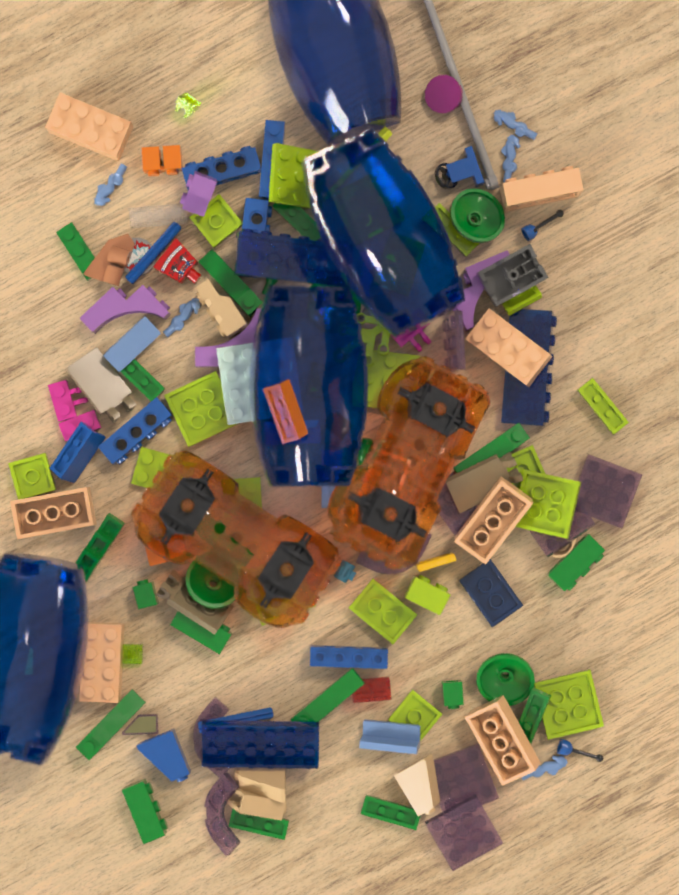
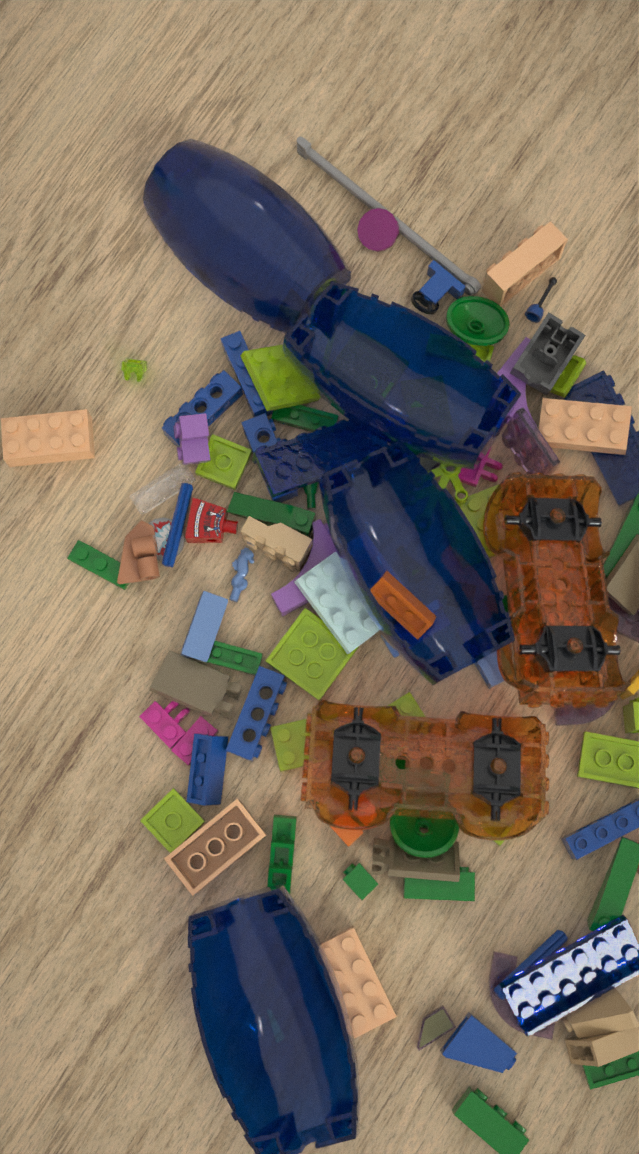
camera: 25 degrees left, 10 degrees down
(106, 190) = (96, 492): medium blue animal -> none
(110, 724) = (400, 1048): green slope -> none
(114, 305) = (166, 597): medium lavender arch -> none
(132, 653) = (380, 953): clear neon green tile -> none
(152, 160) = (148, 427): orange piece -> none
(215, 808) = (572, 1090): plate -> none
(345, 572) = (555, 740): dark azure gear -> none
(509, 120) = (453, 222): medium blue animal -> none
(509, 151) = (470, 250): medium blue animal -> none

